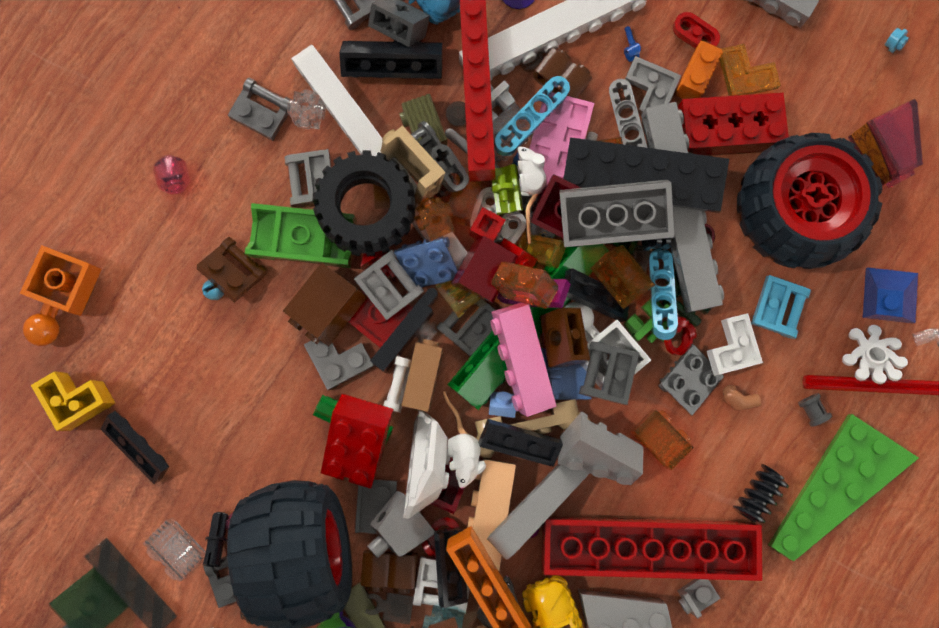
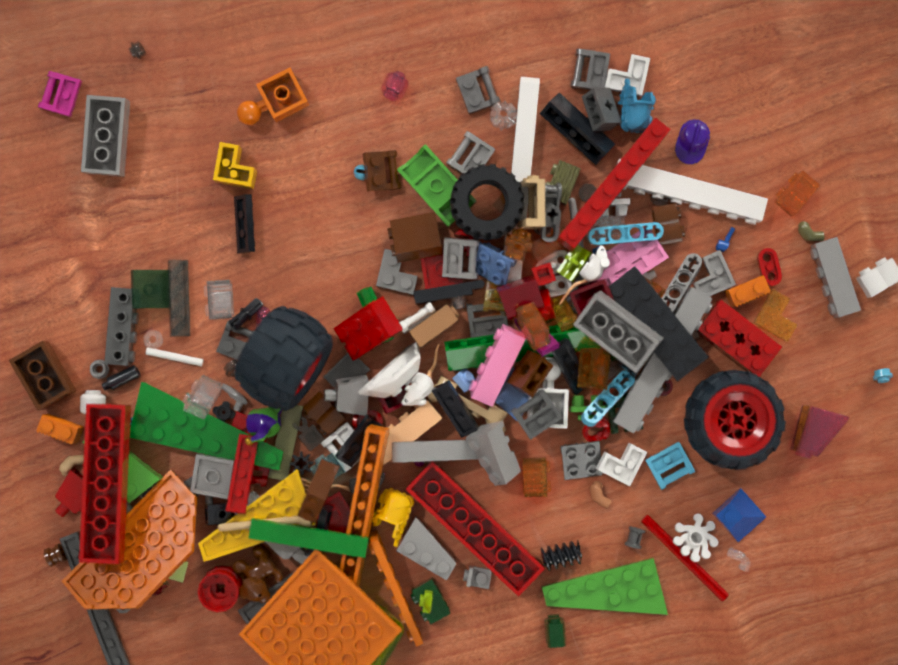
camera: 50 degrees right, 5 degrees up
(830, 582) = (555, 631): none -> dark green brick

